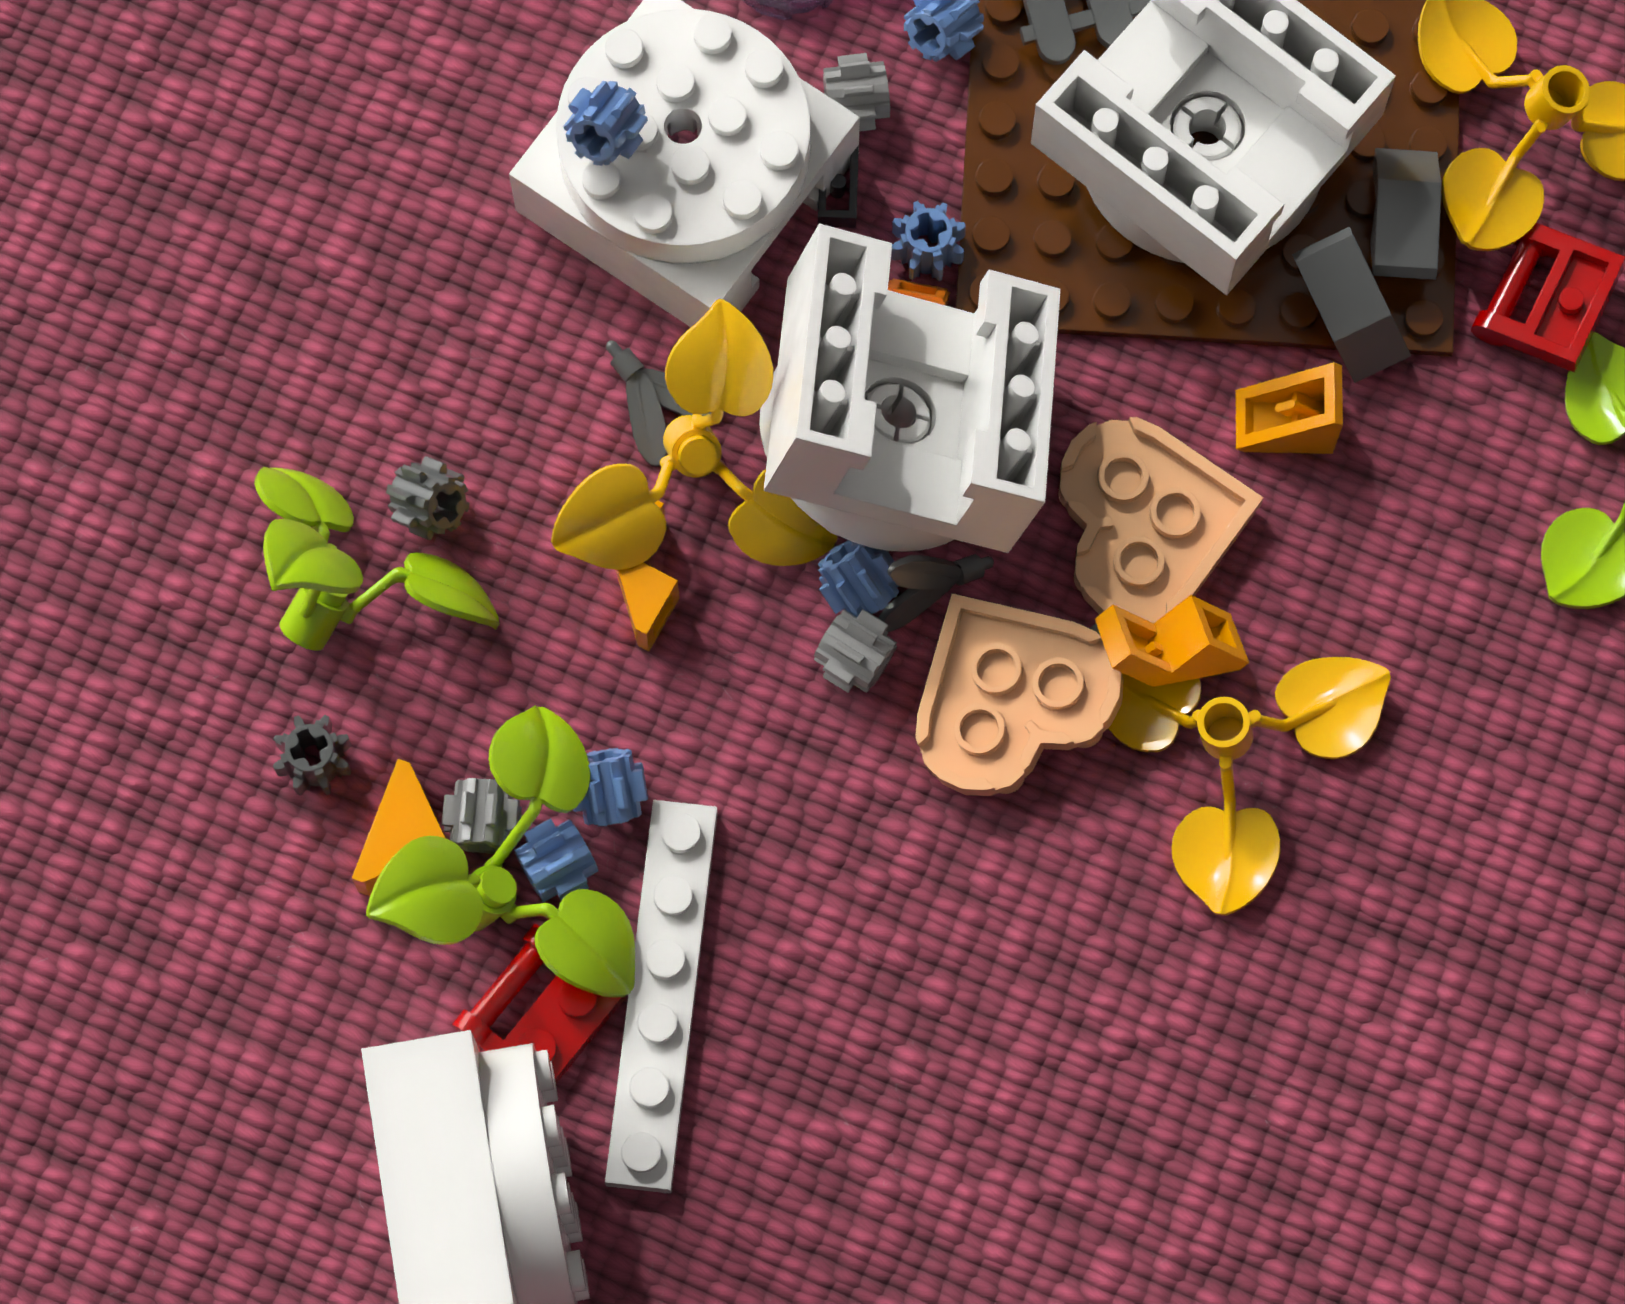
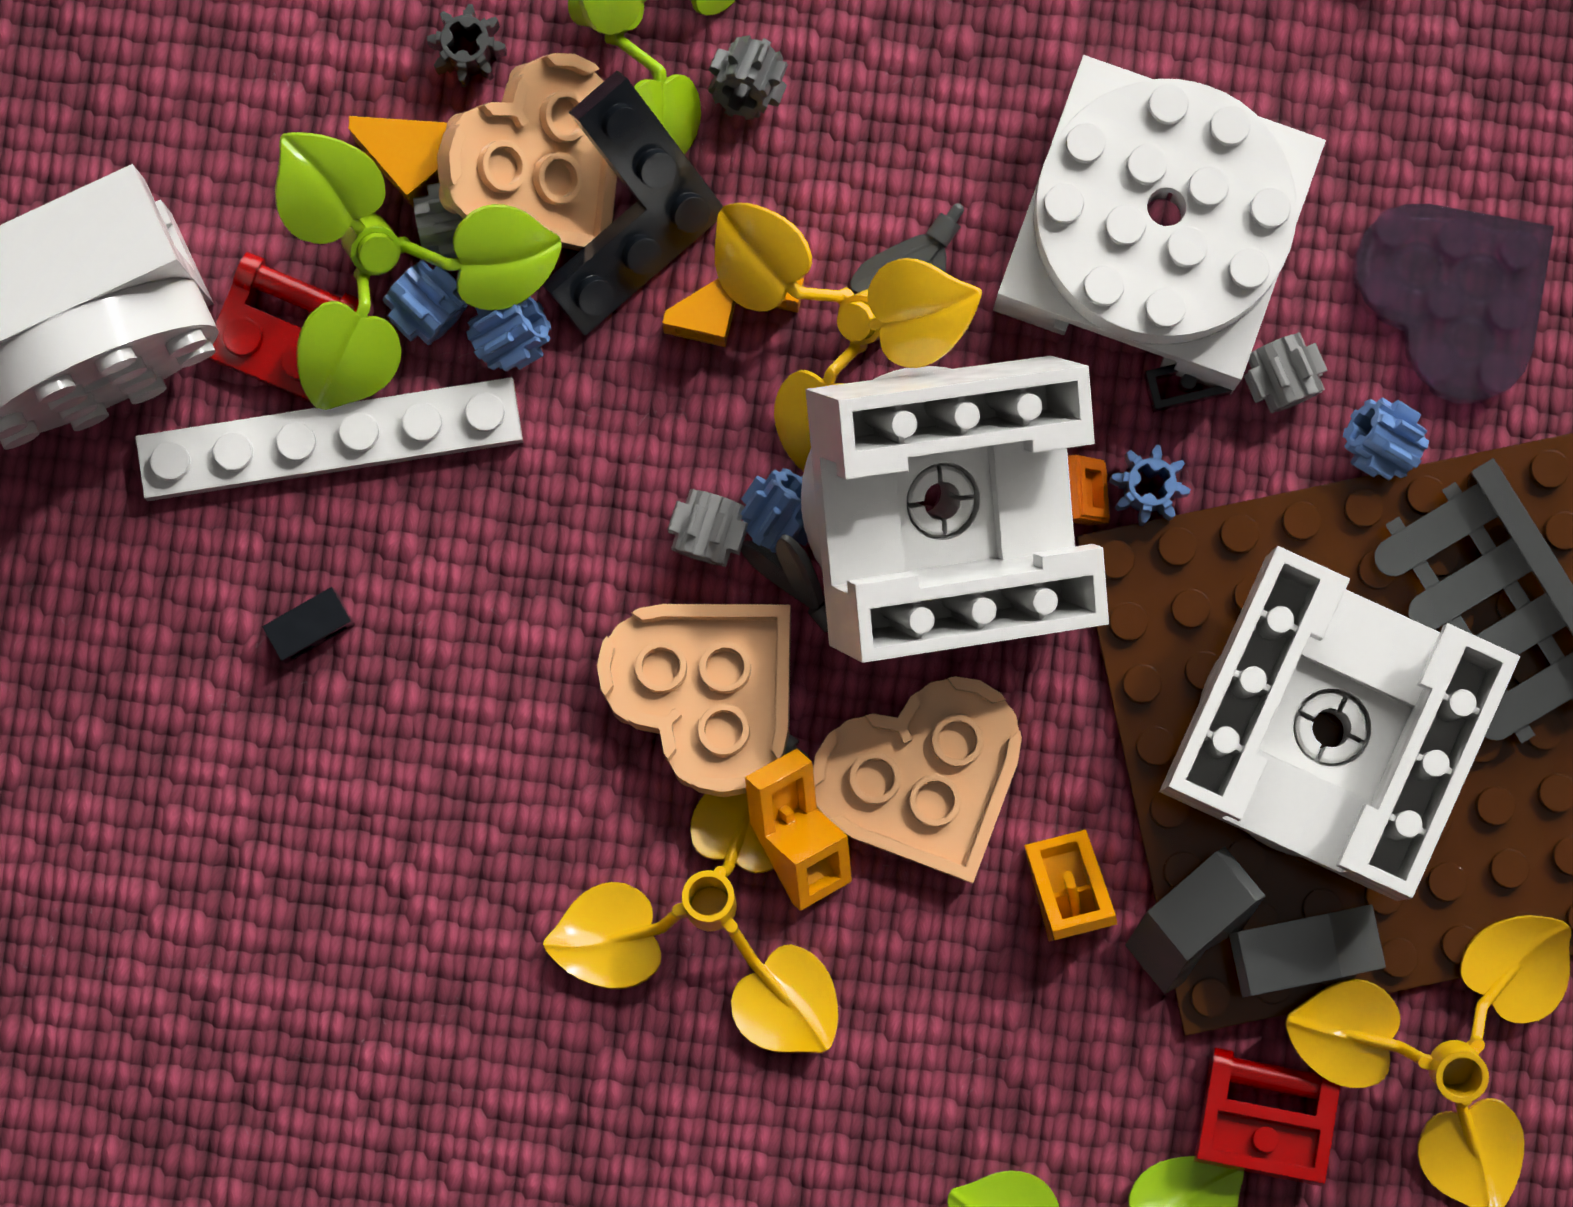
camera: 75 degrees right, 10 degrees up
(441, 707) = (532, 153): none -> light nougat plate
(536, 605) = (669, 212): none -> black plate
(605, 123) = (1131, 127): medium blue gear -> none
(843, 1061) = (308, 625): none -> black piece

